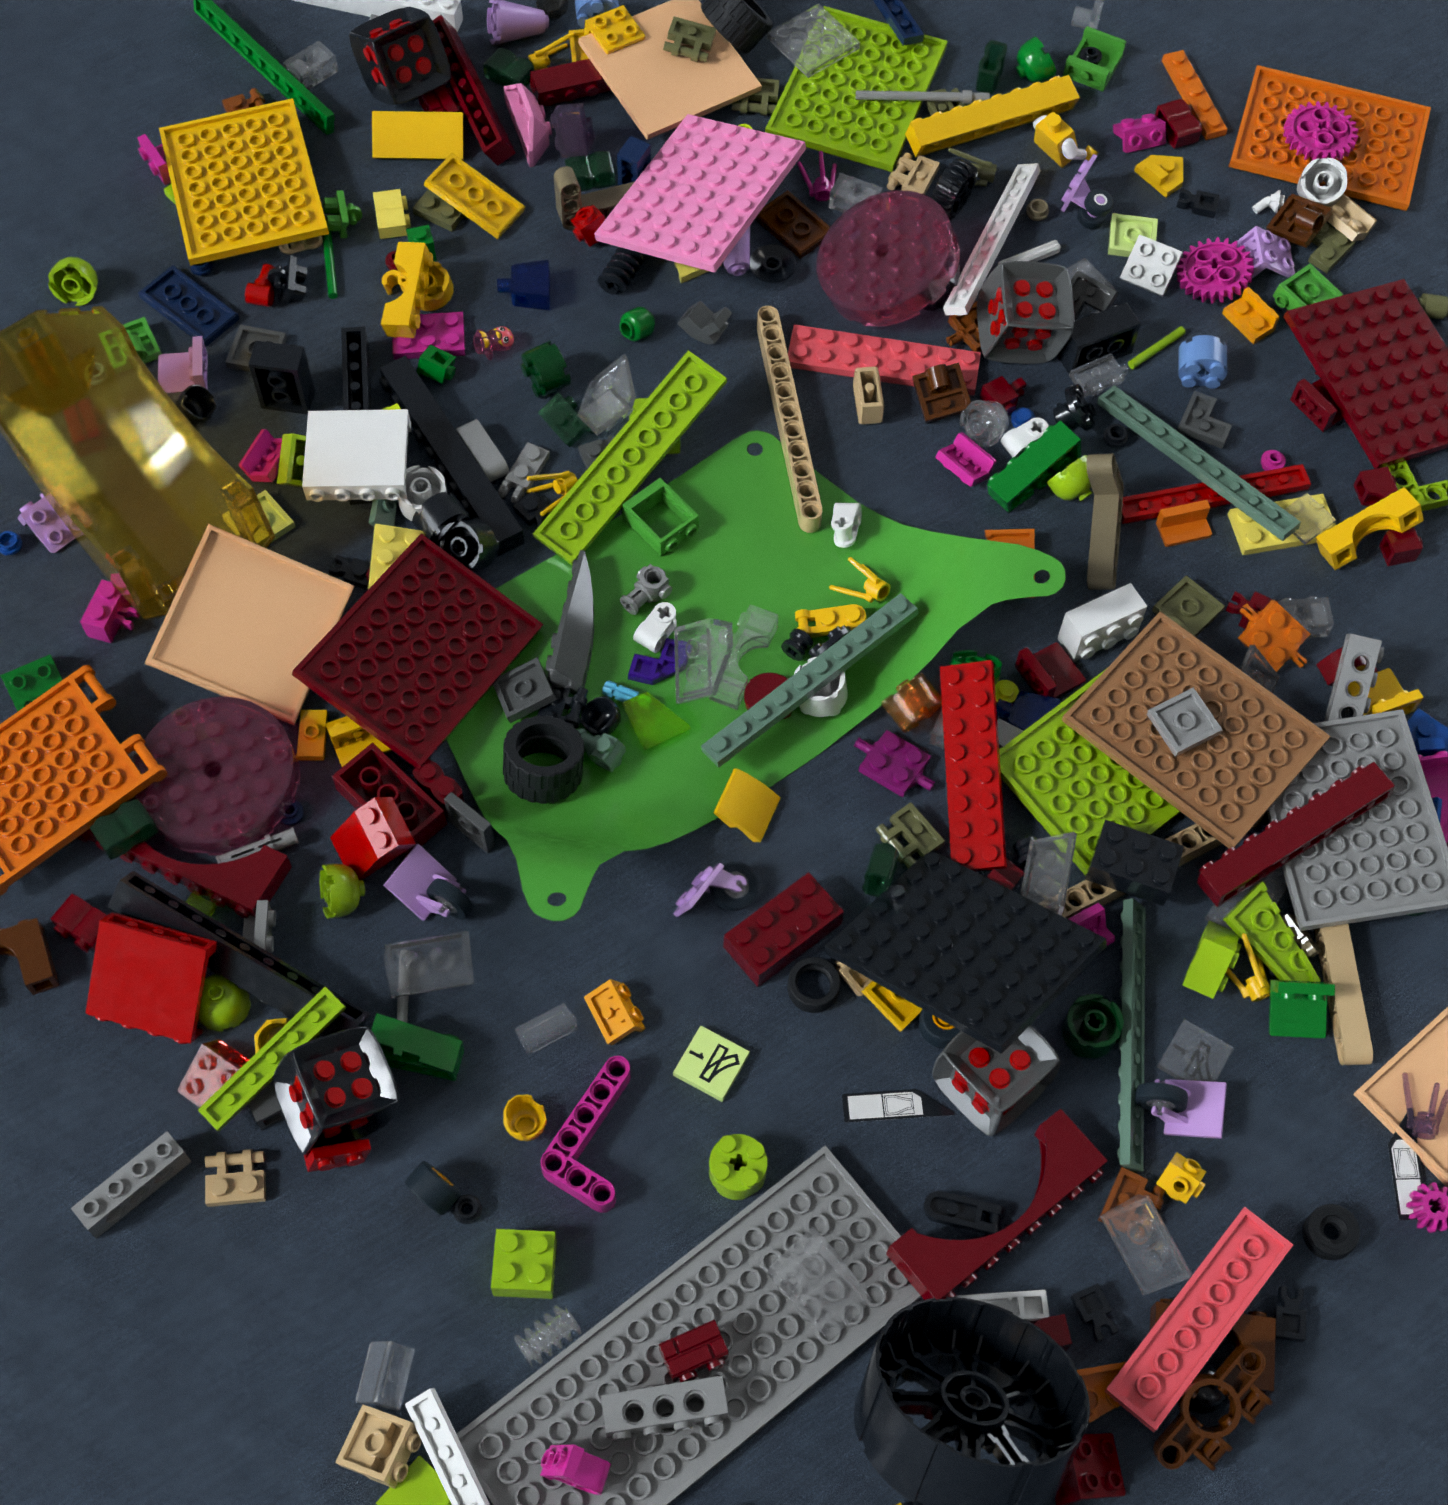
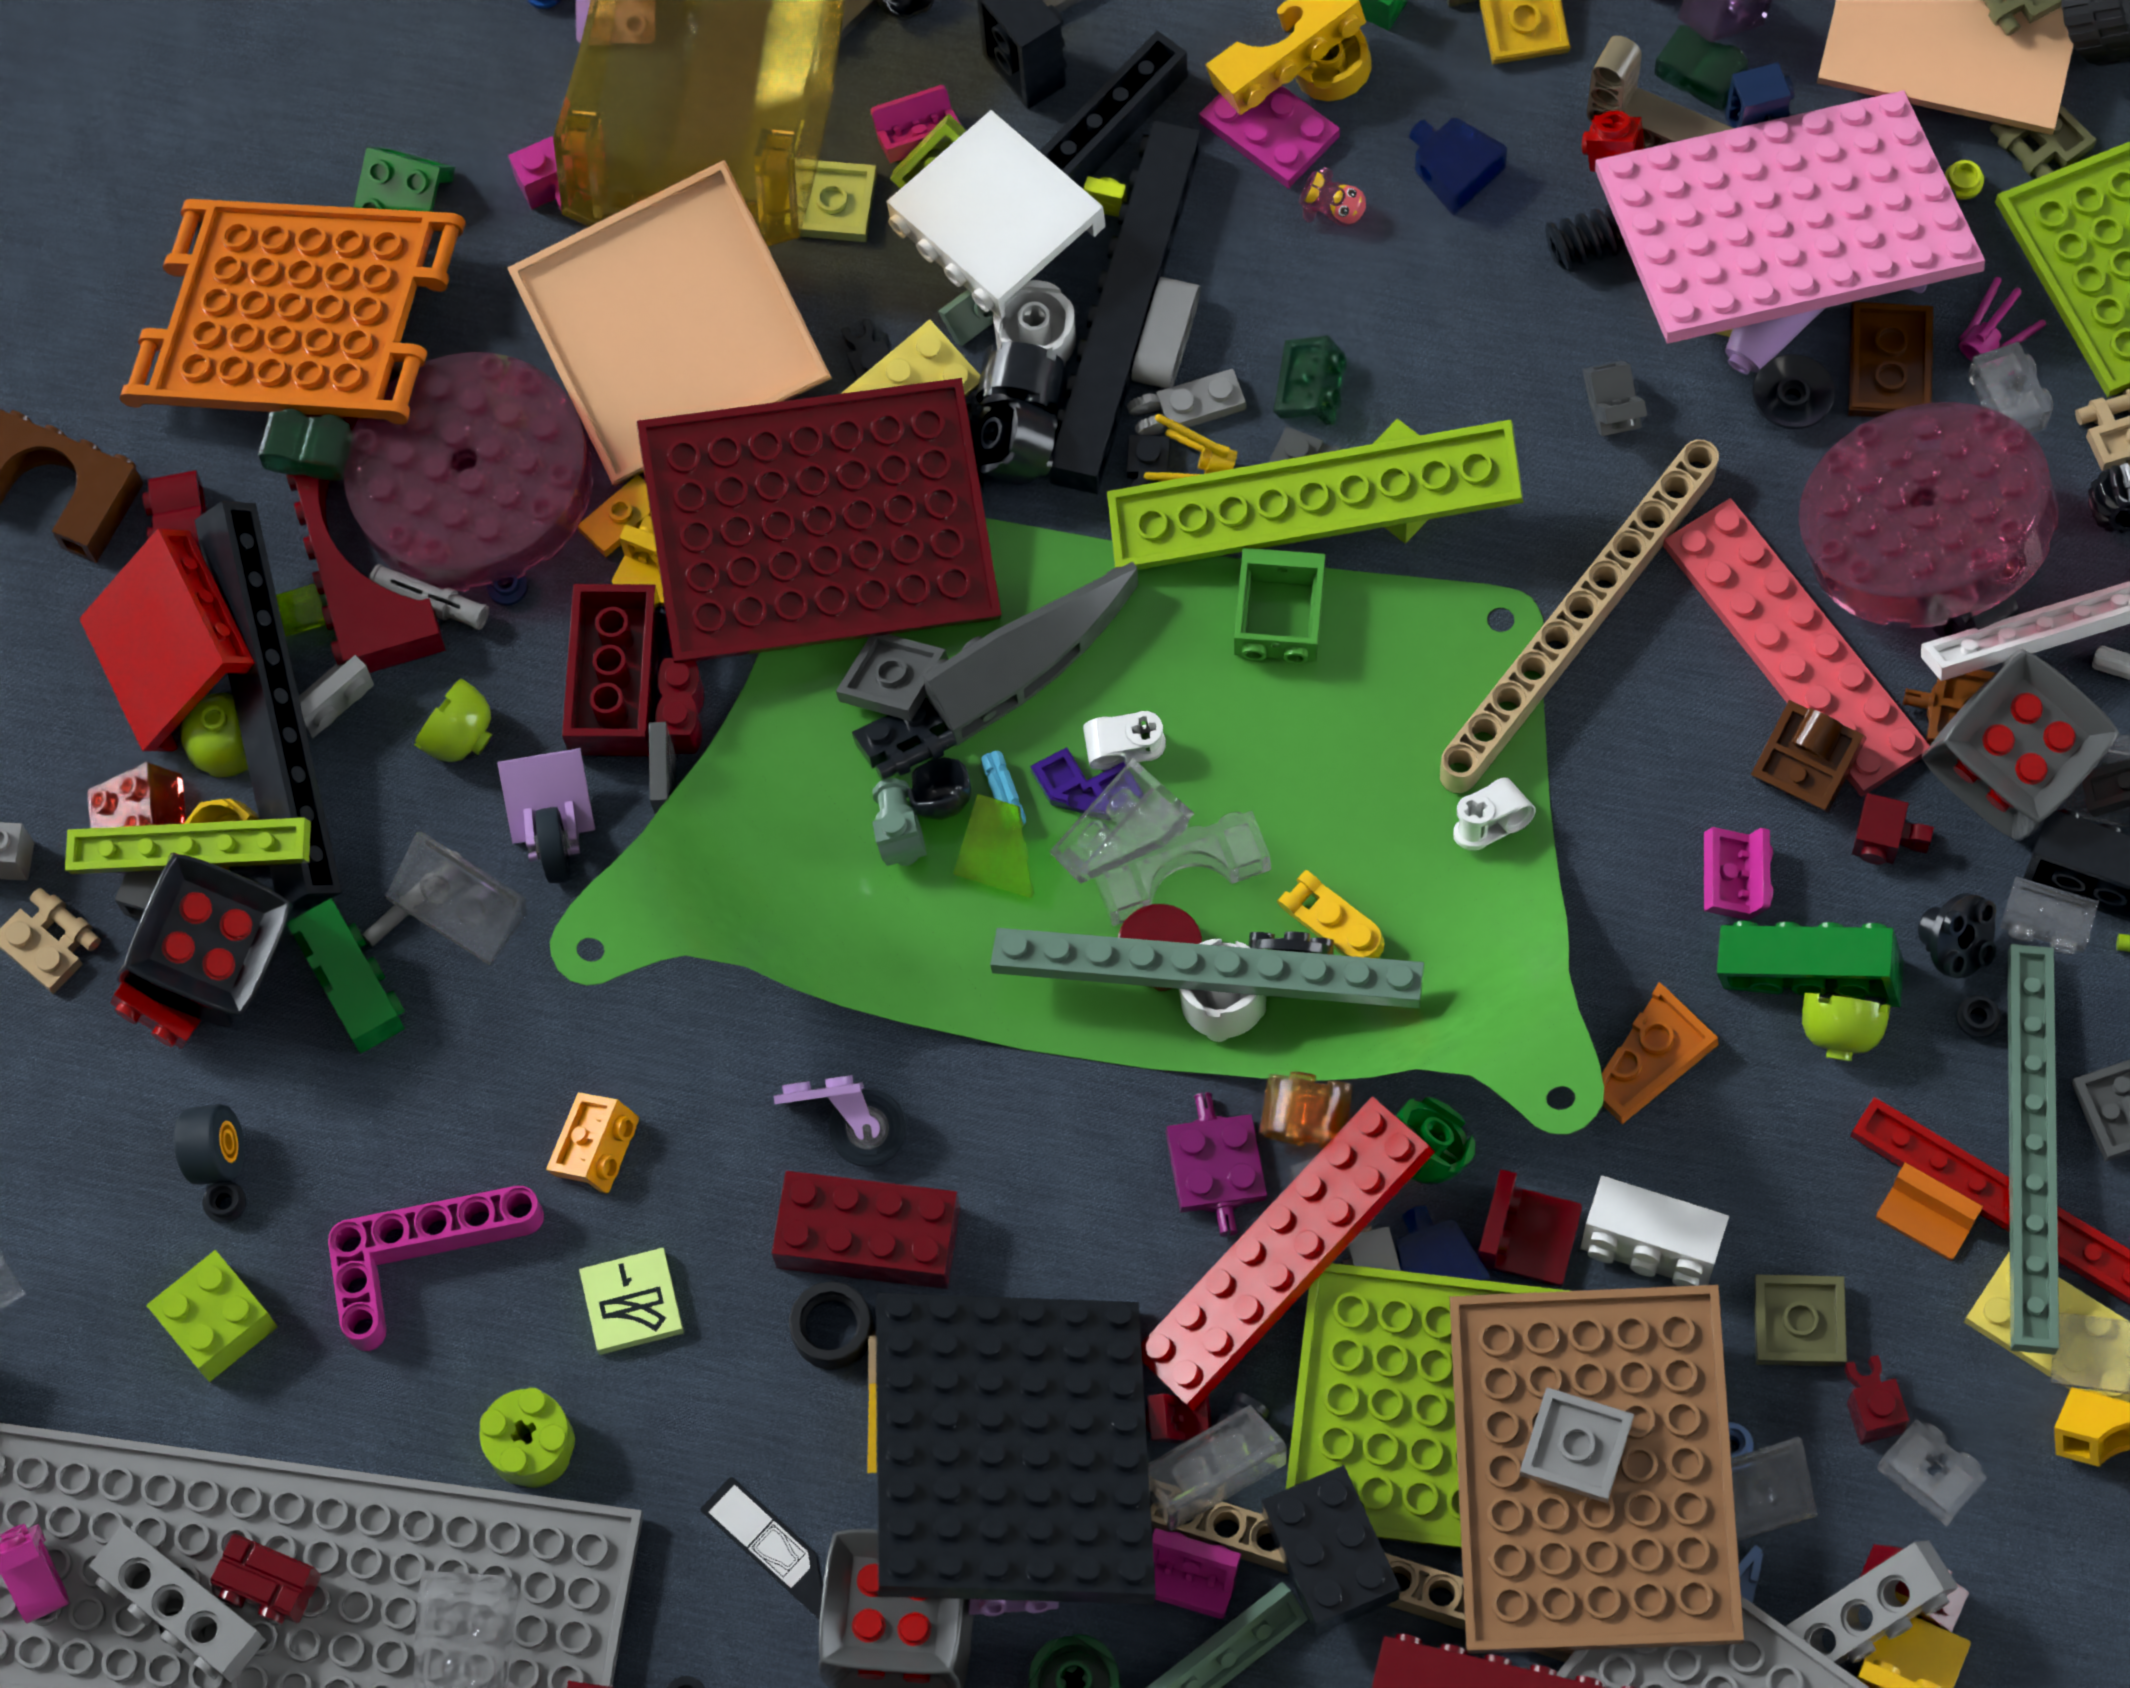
camera: 55 degrees right, 5 degrees up
(372, 836) = (542, 697): red slope -> none
(436, 364) = (1231, 173): green brick -> none
(524, 1118) = (374, 1162): yellow hair -> none
(542, 783) = (819, 735): black tyre -> none
(545, 368) = (1345, 291): dark green brick -> none
(546, 1028) = (505, 1089): clear panel -> none
(547, 1335) = (156, 1415): clear piece -> none
(608, 397) = (1377, 394): clear slope -> none
(637, 324) = (1530, 327): green head -> none
(645, 591) = (1158, 681): light grey connector -> none
(747, 805) = (985, 1048): yellow slope -> none
(797, 644) = (1262, 911): black wheel -> none
(868, 395) = (1708, 675): tan brick -> none
(874, 586) = (1425, 929): yellow plant -> none
(880, 869) = (1043, 1268): clear green brick -> none
(915, 829) = (1146, 1265): olive plate -> none
(984, 422) = (1816, 844): clear cone -> none
(1006, 691) = (1447, 1203): neon yellow plate -> none
(1018, 438) = (1847, 906): white piece -> none
(1021, 416) = (1883, 883): blue plate -> none
(1106, 521) = (1813, 1116): dark tan beam -> none
(1274, 634) = (1853, 1456): orange plate -> none

